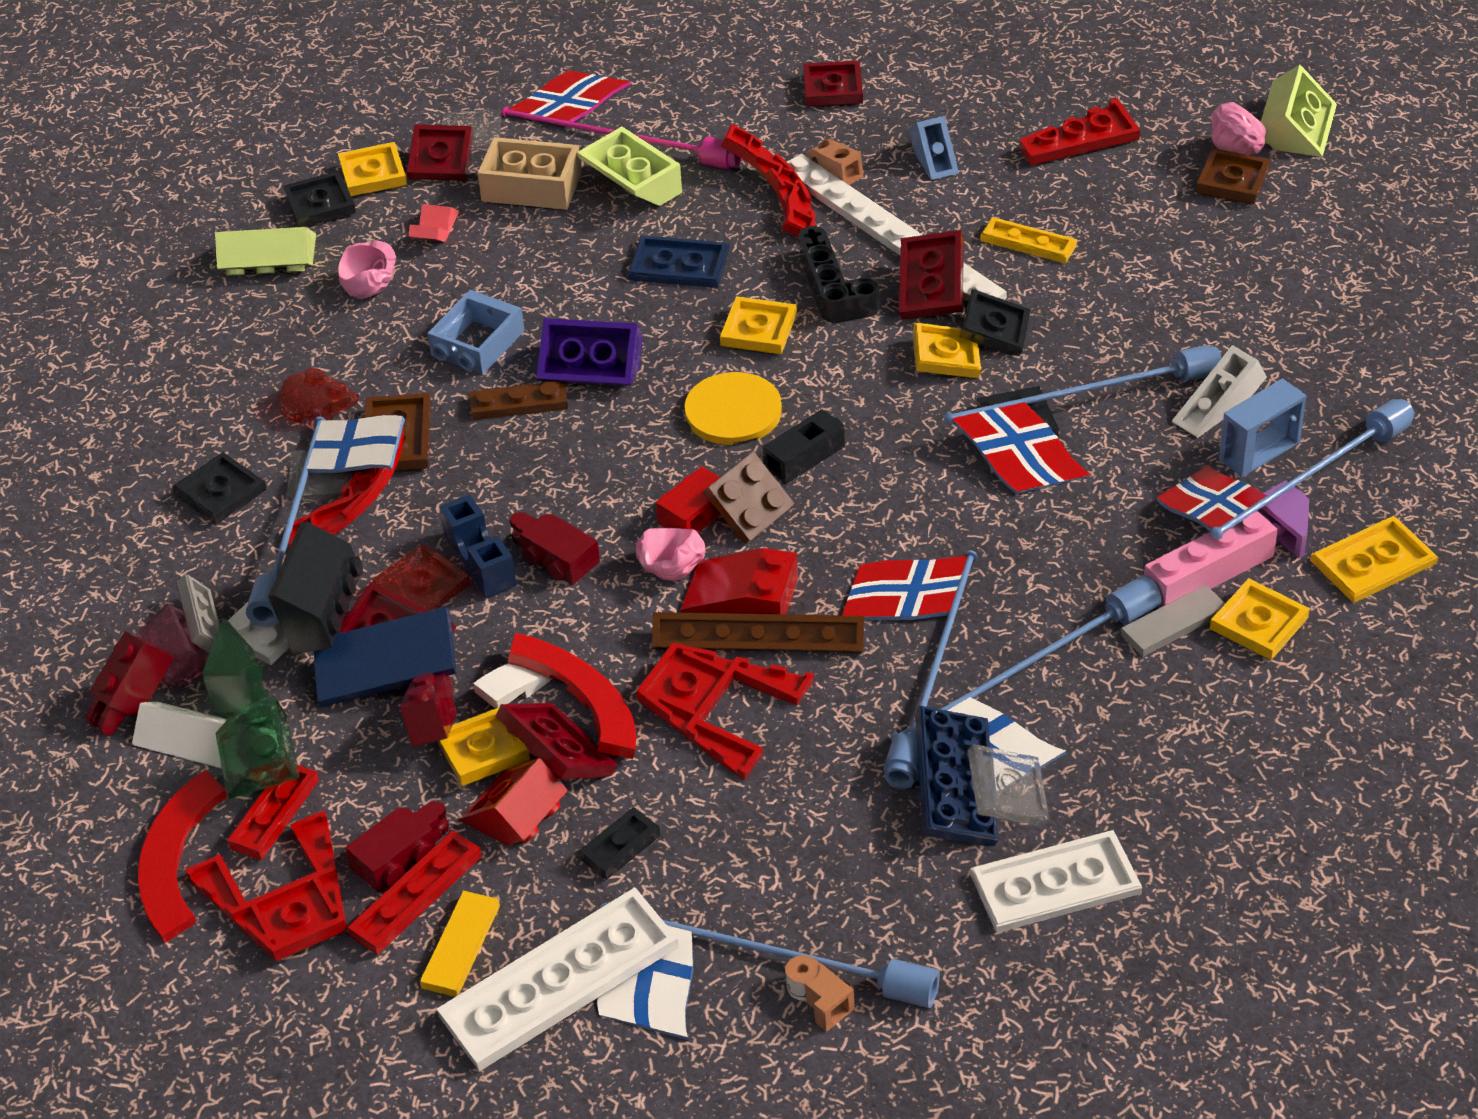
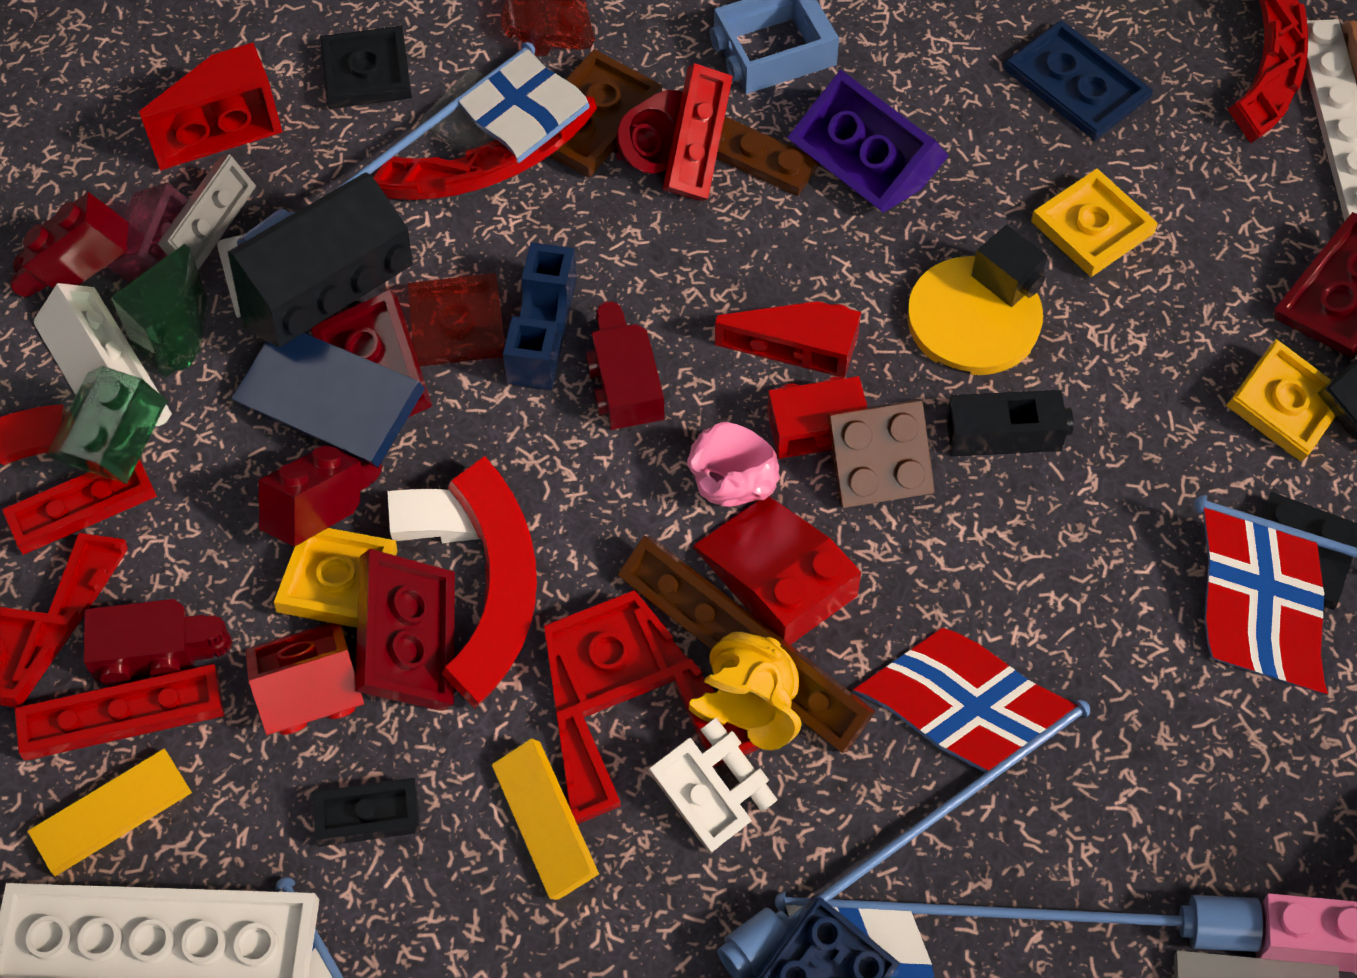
camera: 35 degrees right, 15 degrees up
(151, 553) = (212, 109): none -> red slope
(454, 416) = (648, 132): none -> dark red piece
(481, 401) = (697, 132): none -> plate
(640, 472) = (801, 335): none -> red slope
(727, 781) = (545, 819): none -> yellow tile
(735, 367) = (1009, 266): none -> black brick
(791, 642) = (754, 689): none -> yellow helmet
(805, 712) = (699, 792): none -> white plate
(835, 297) = (1215, 244): black beam -> none

